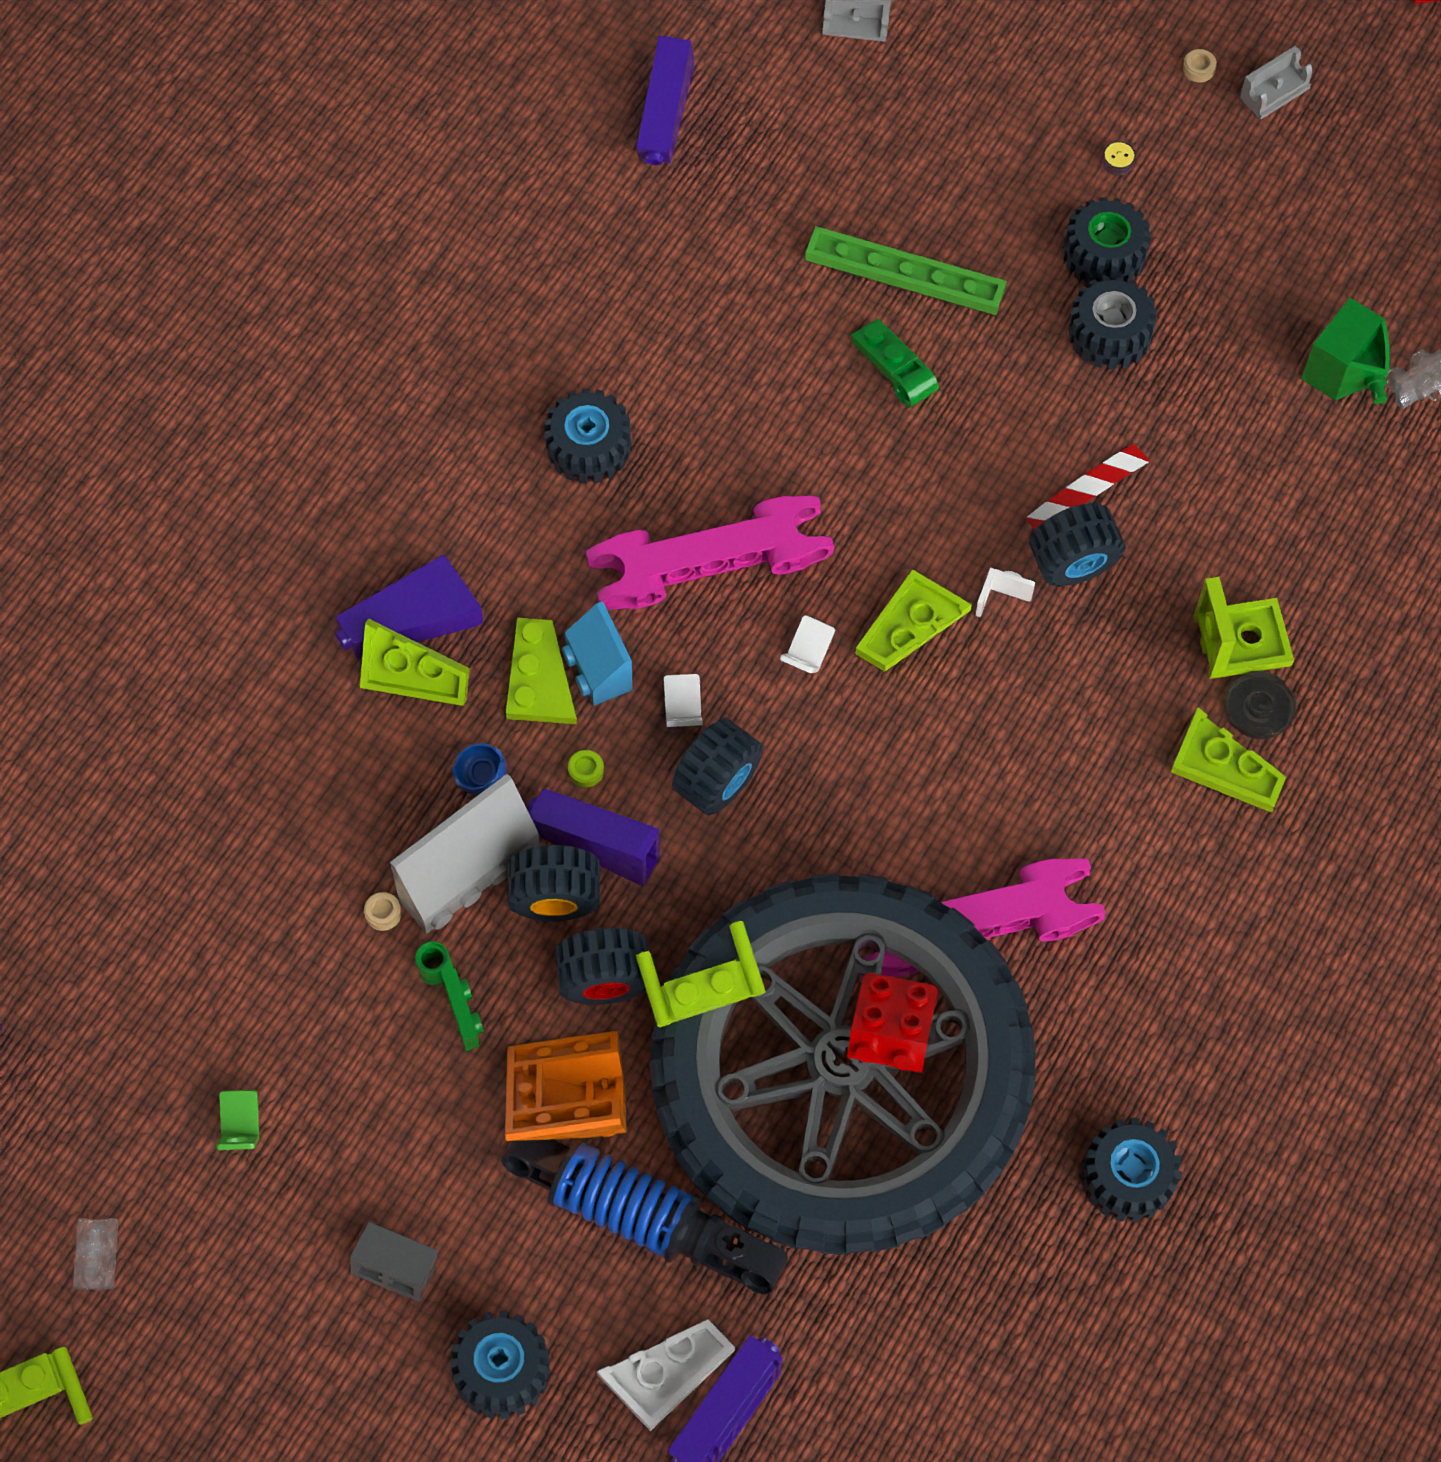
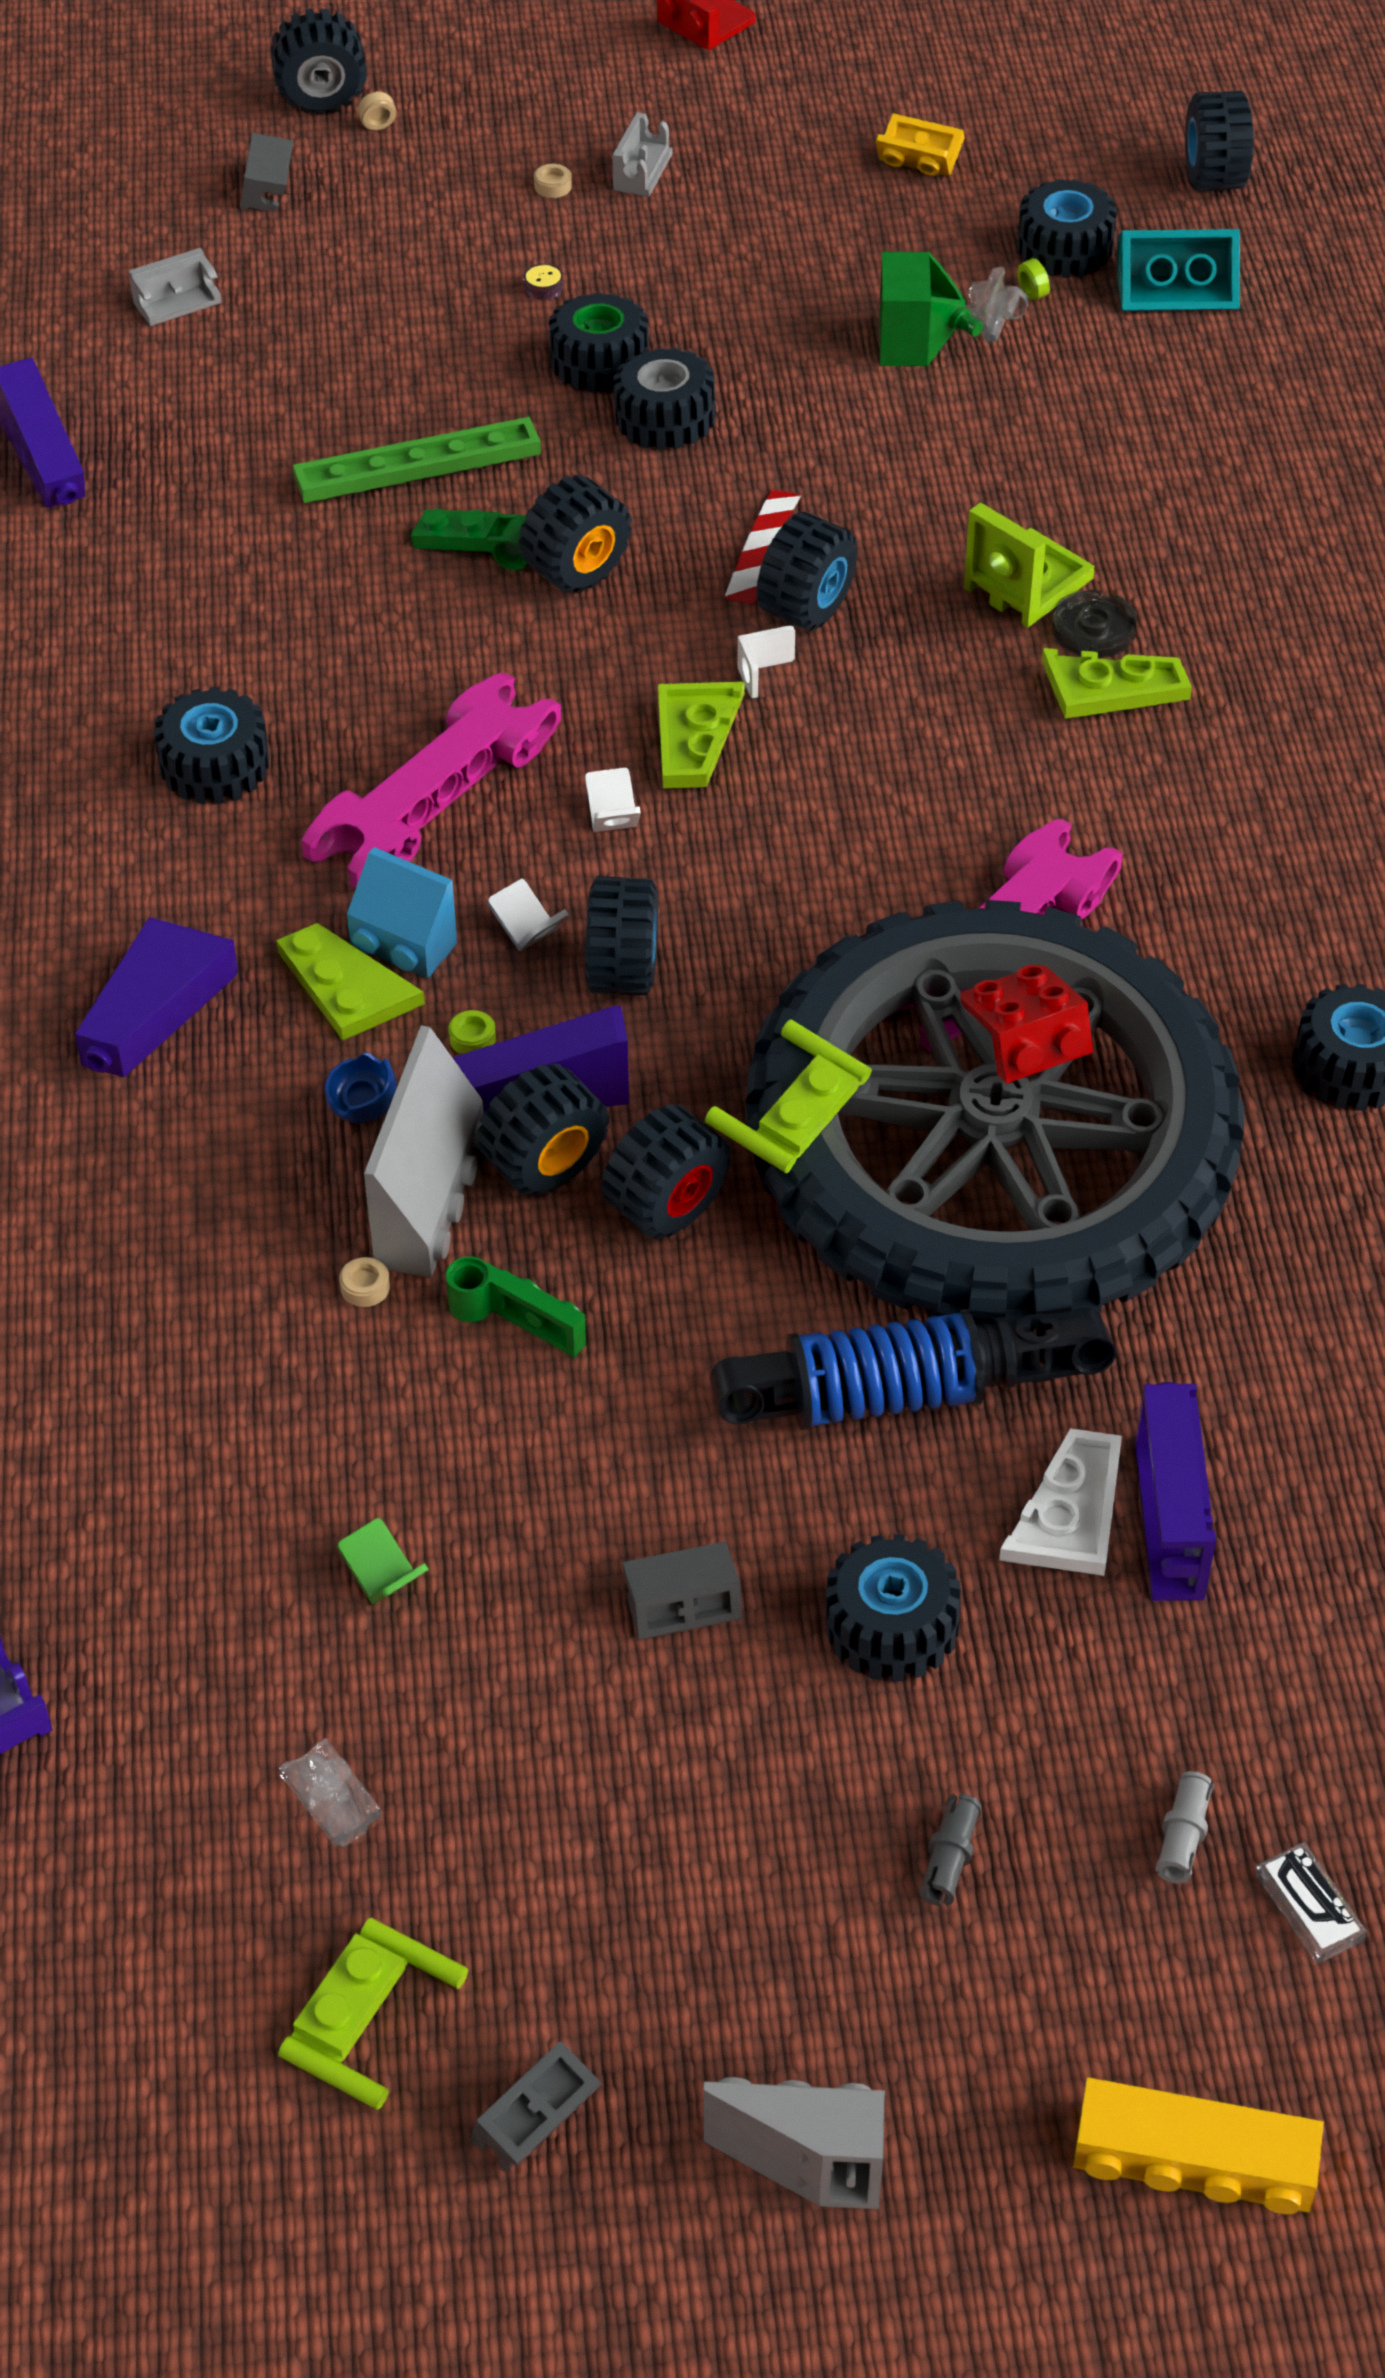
camera: 35 degrees left, 15 degrees down
(410, 669) = (199, 1040): lime wing -> none
(565, 1089) = (733, 1301): orange slope -> none
(946, 412) = (575, 533): none -> black wheel

